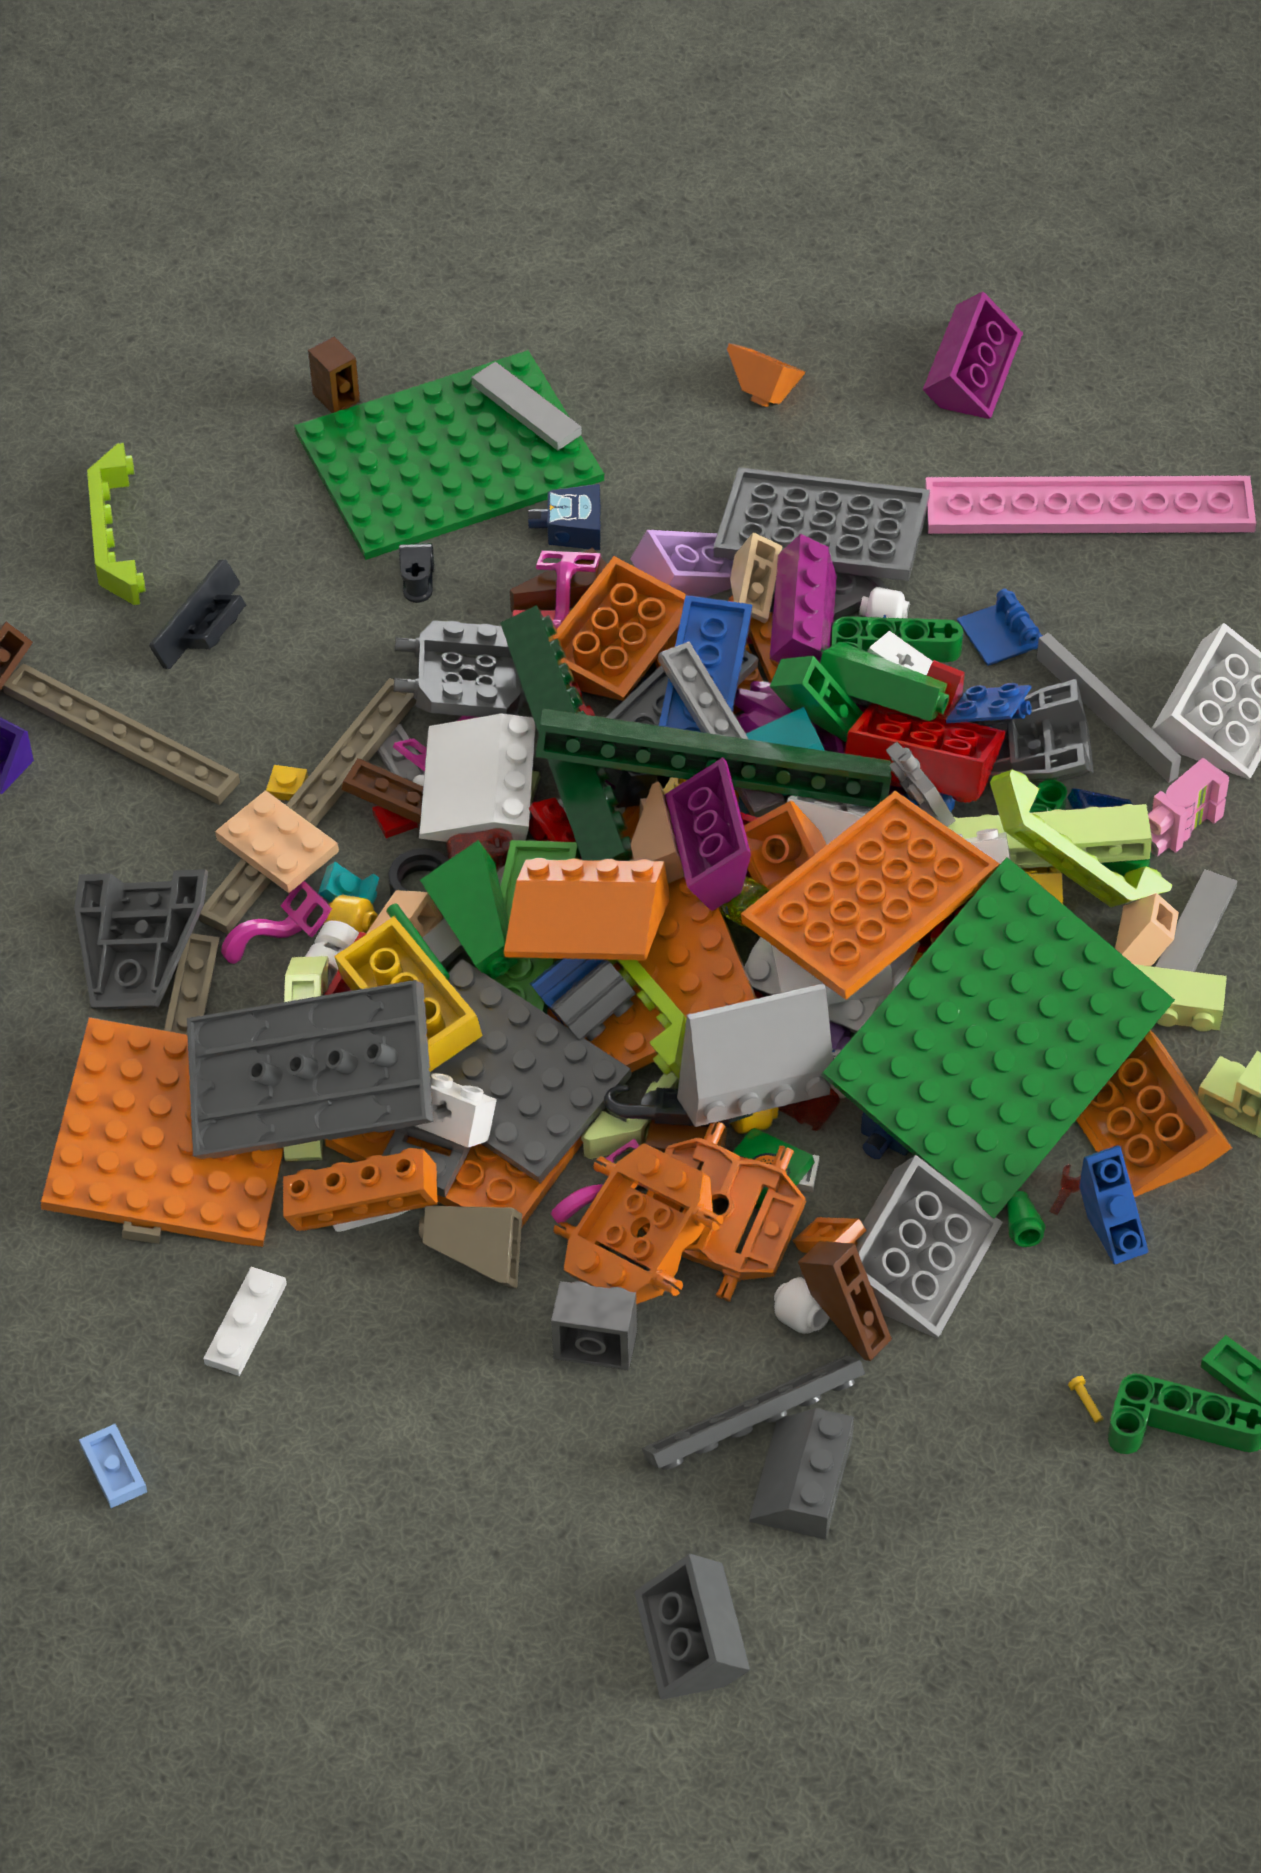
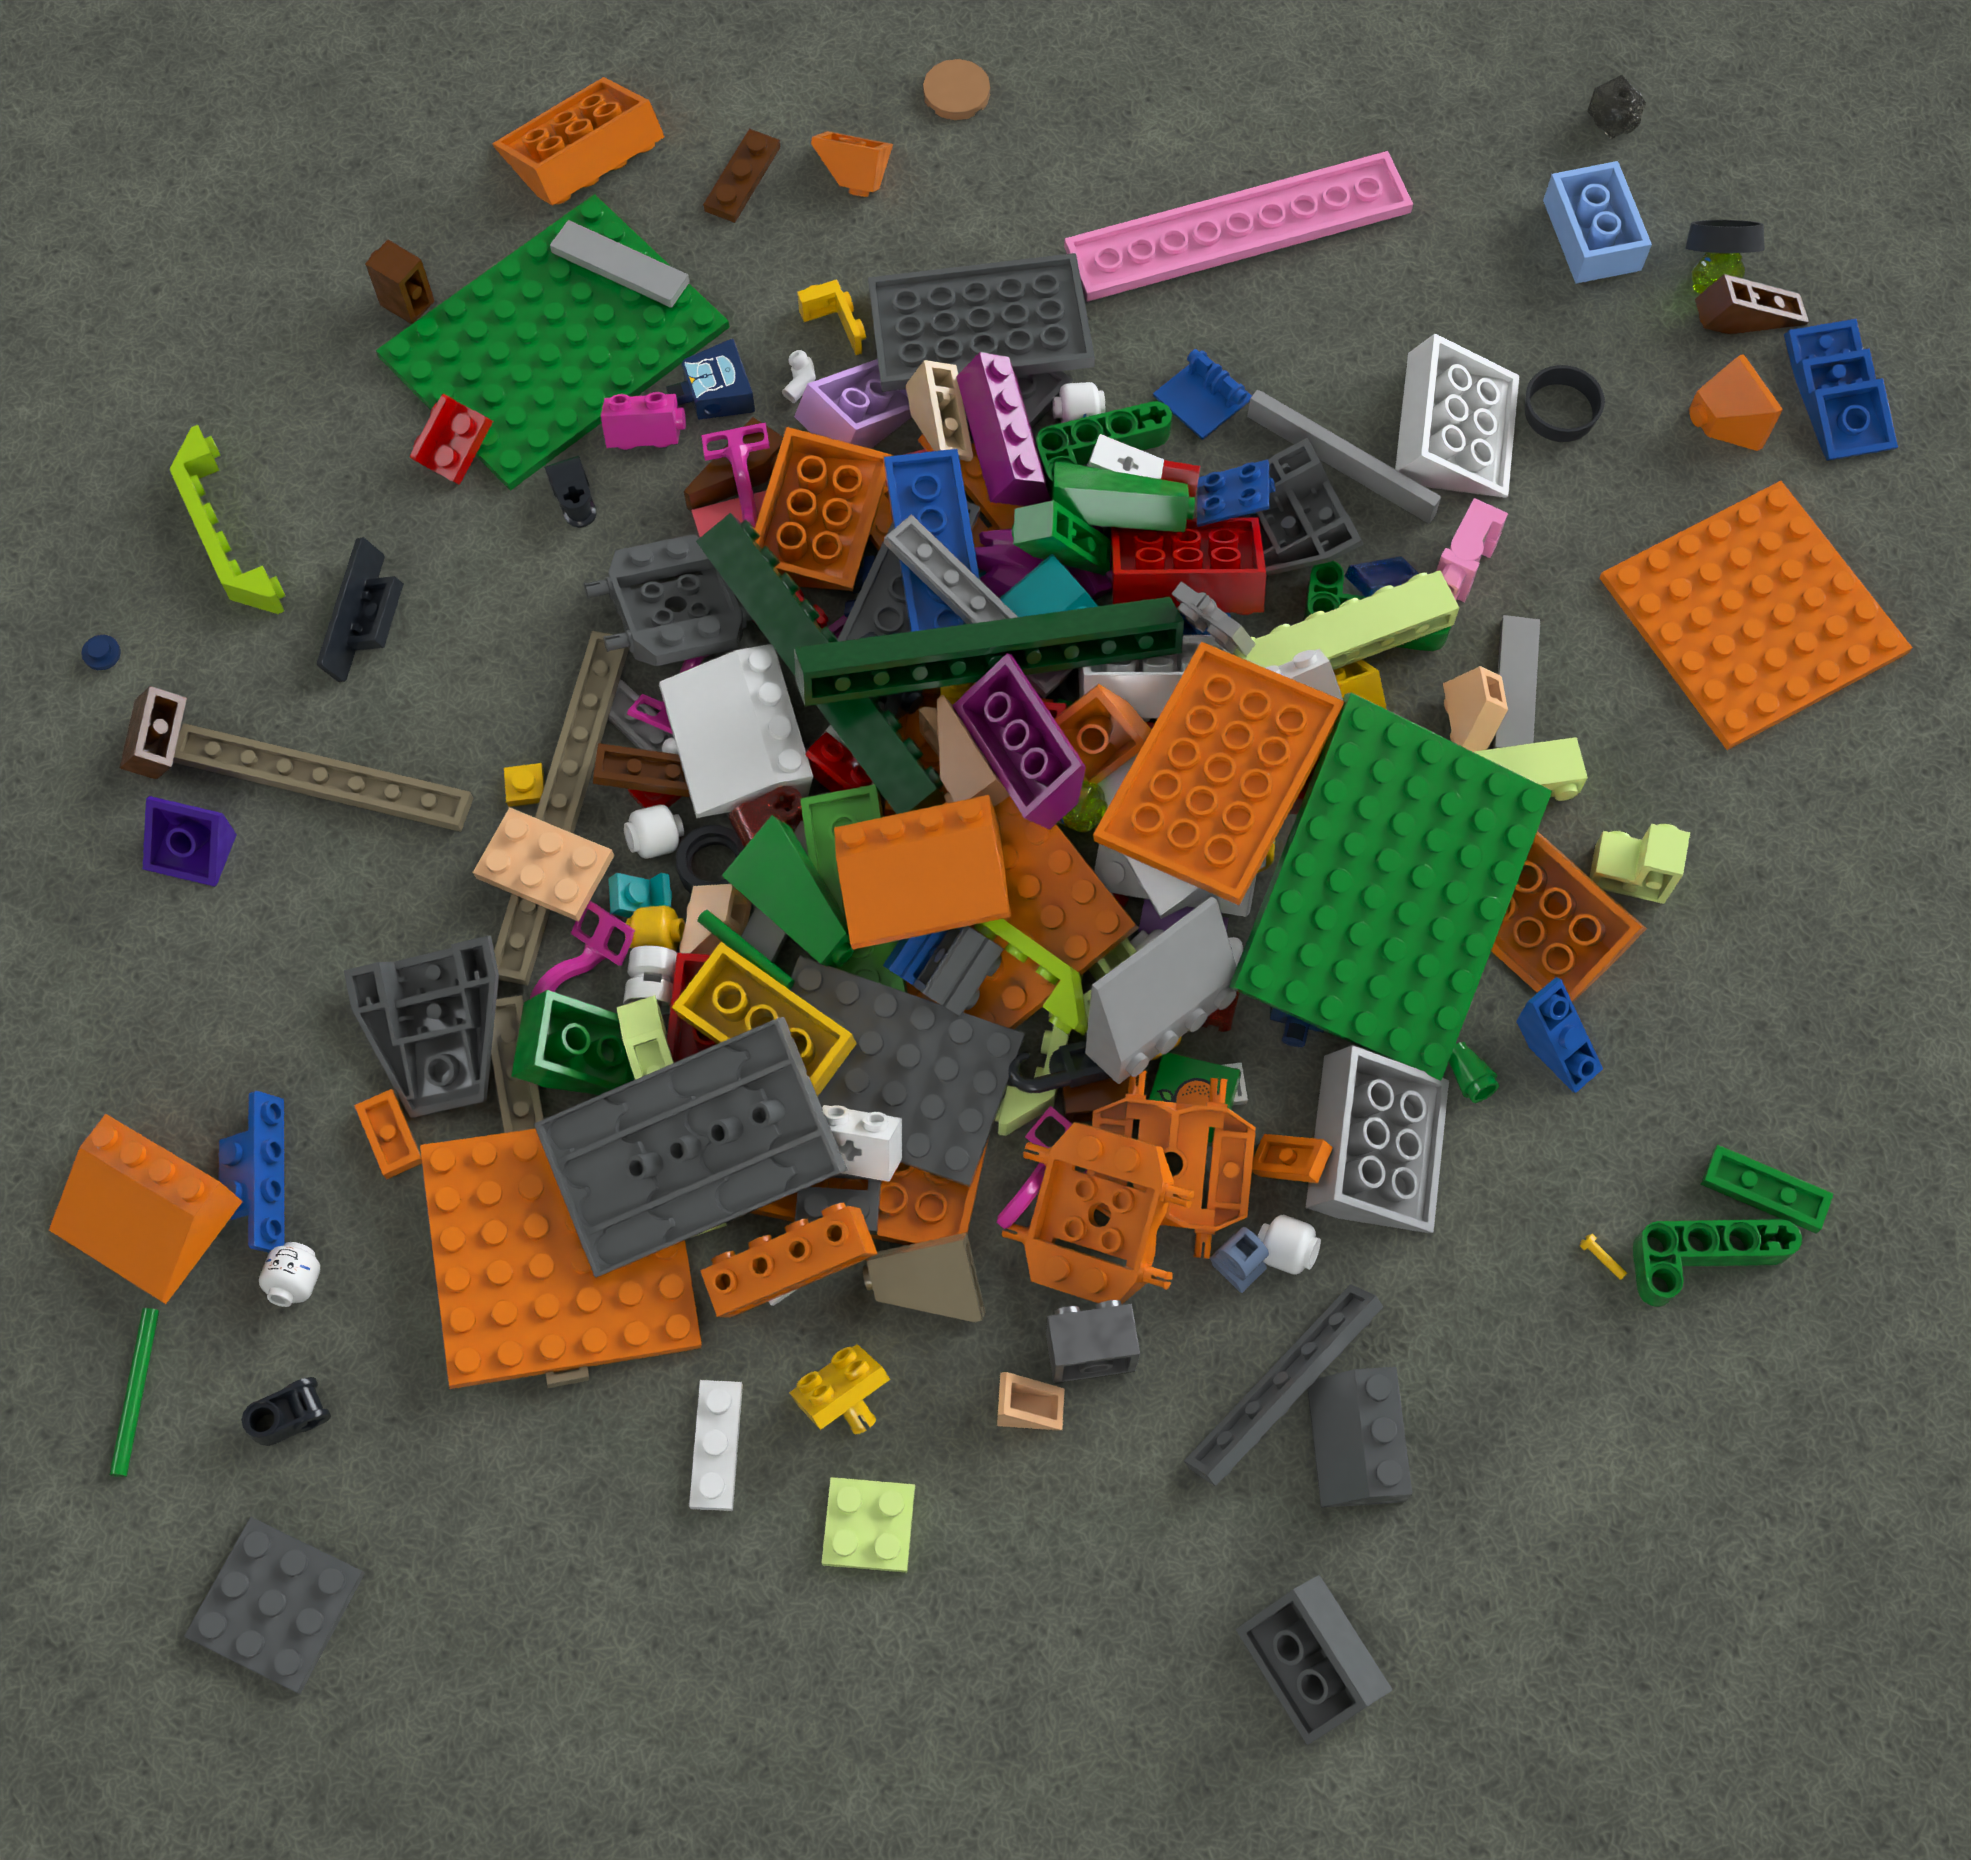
camera: 20 degrees left, 15 degrees up
(67, 1011) = (389, 1134): none -> orange plate
(113, 1466) = (639, 1668): light blue plate -> none
(238, 974) = (570, 1046): none -> green slope
(328, 504) = (450, 439): none -> red bracket
(349, 1418) = (868, 1525): none -> yellowish green plate
(366, 1303) = (841, 1389): none -> yellow plate
(379, 843) = (653, 831): none -> white head
(497, 529) = (642, 420): none -> dark pink brick
(521, 1360) = (1029, 1403): none -> light nougat slope
(533, 306) = (580, 140): none -> orange slope
(653, 522) = (802, 373): none -> white arm
(662, 365) = (742, 175): none -> reddish brown plate
(696, 477) = (827, 299): none -> yellow bracket
(752, 1301) = (1241, 1259): none -> sand blue leg
(845, 1294) = (1335, 1225): reddish brown slope -> none
(879, 341) = (956, 89): none -> medium nougat tile
(973, 358) = (1061, 85): magenta slope -> none
(1014, 798) = (1324, 619): lime slope -> none
(1068, 1186) = (1498, 1019): clear red hand -> none

